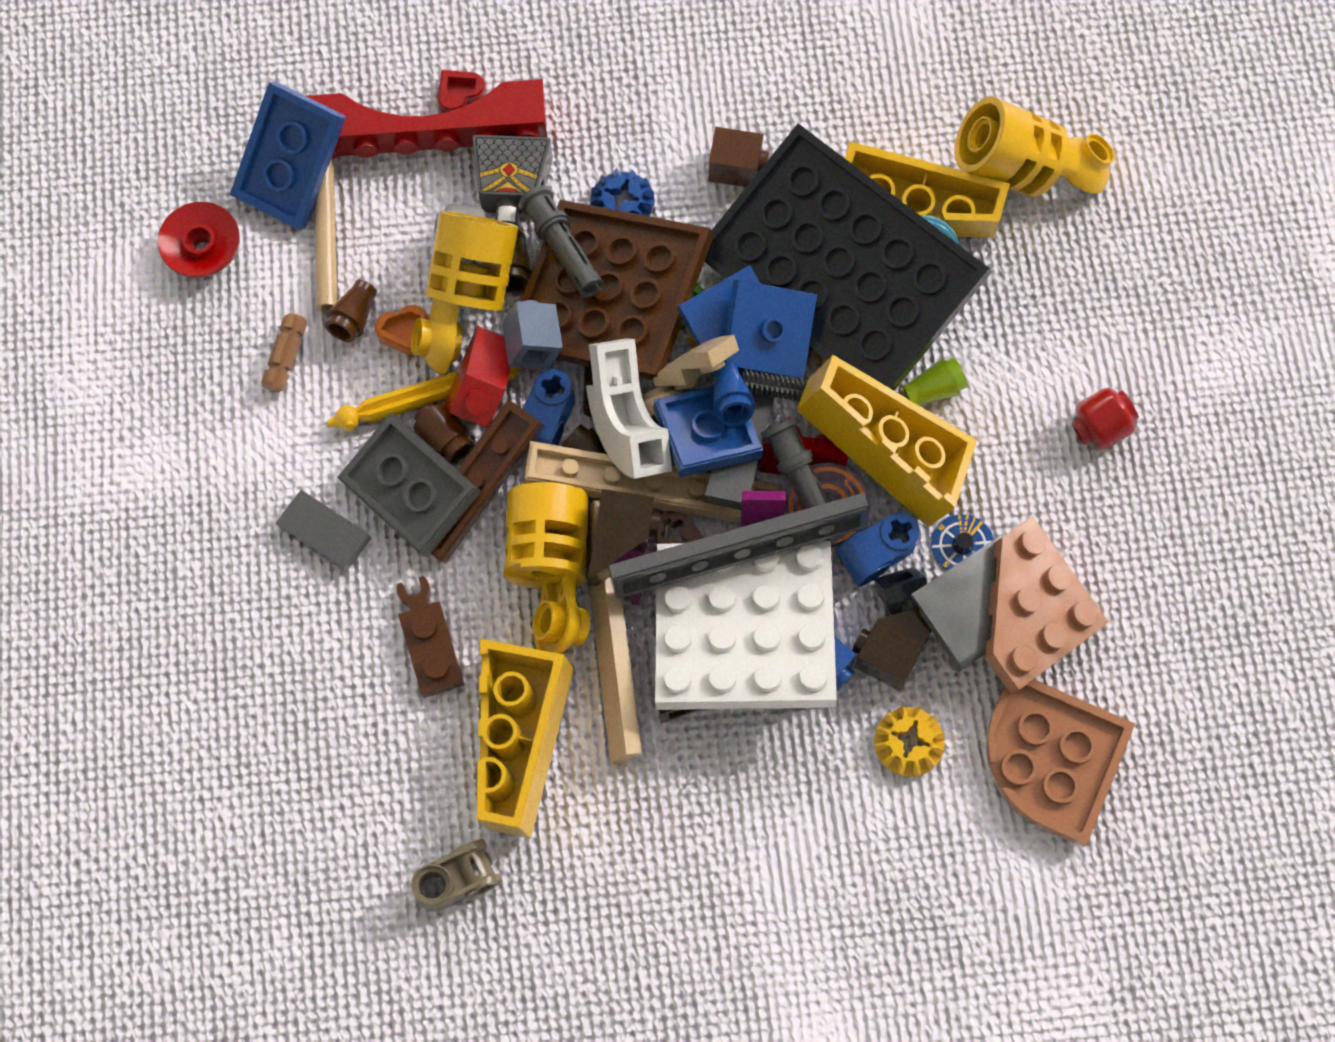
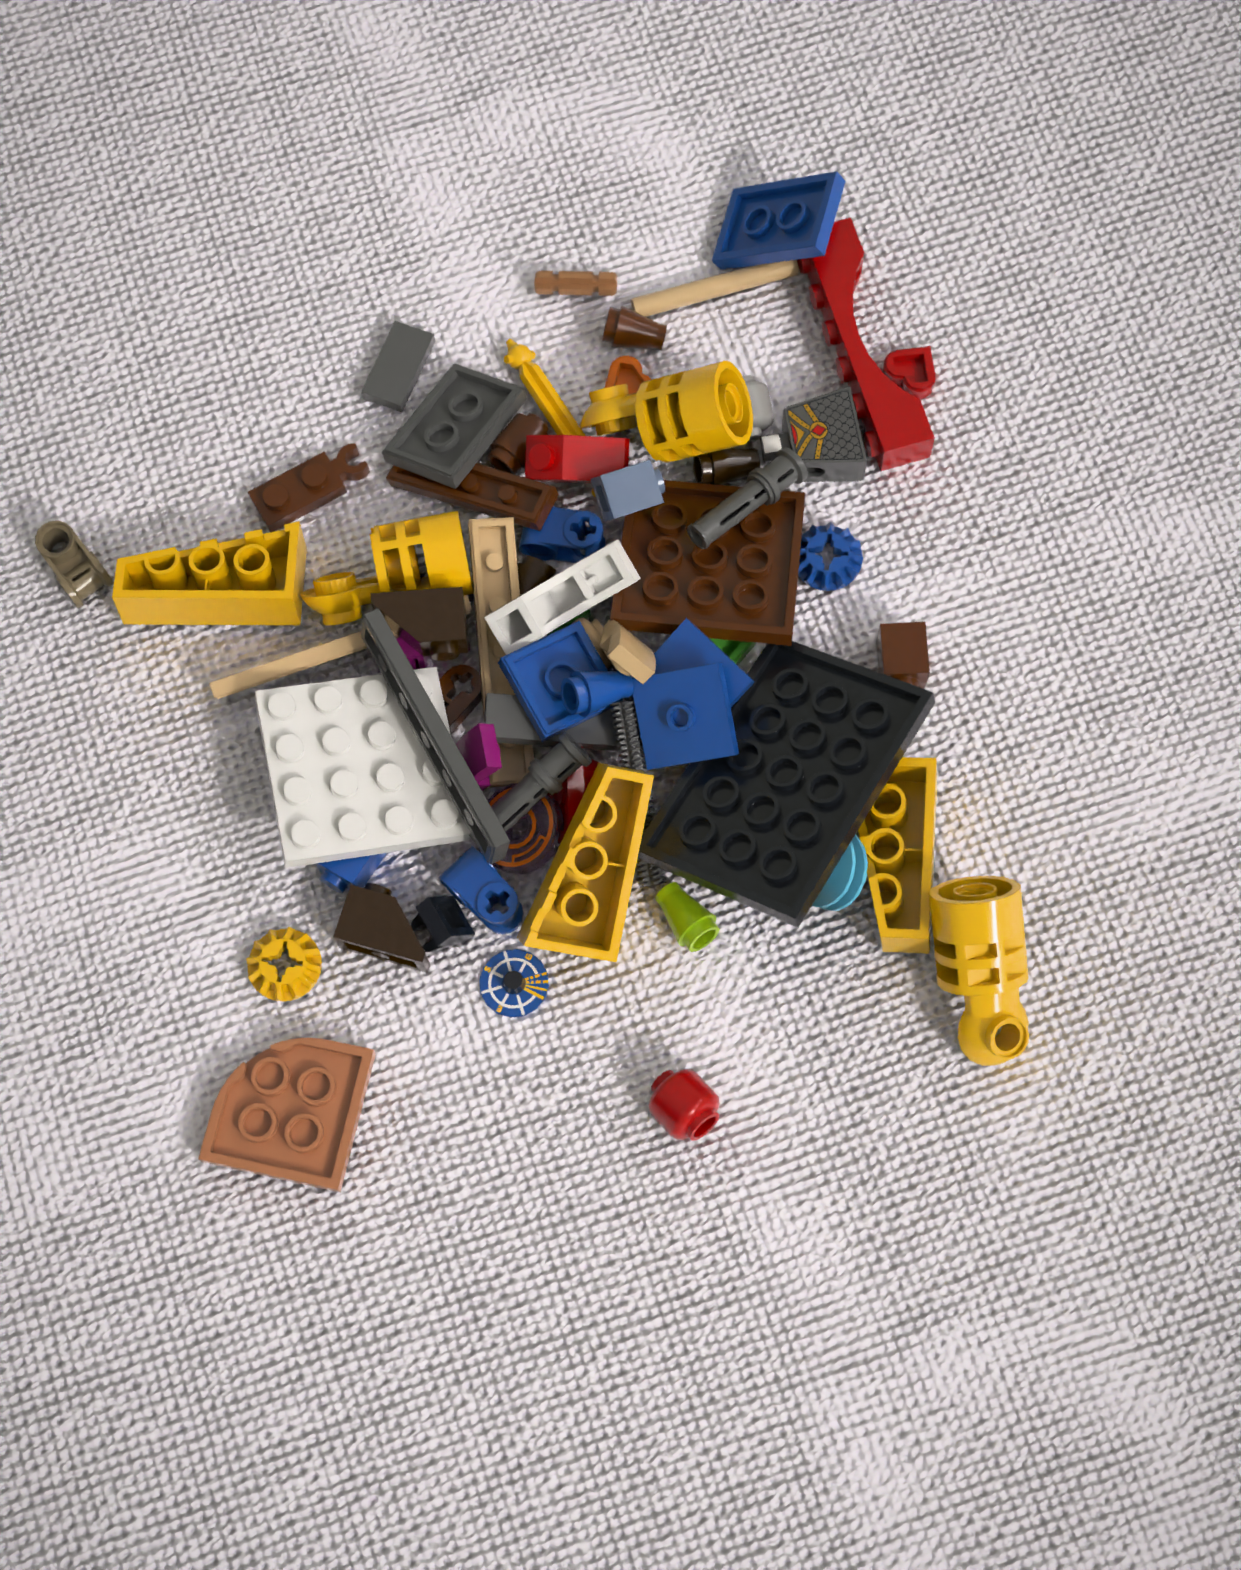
camera: 80 degrees right, 0 degrees up
(197, 224) = (674, 159): red dish -> none
(958, 606) = (440, 1004): piece -> none
(1035, 607) = (444, 1061): nougat plate -> none

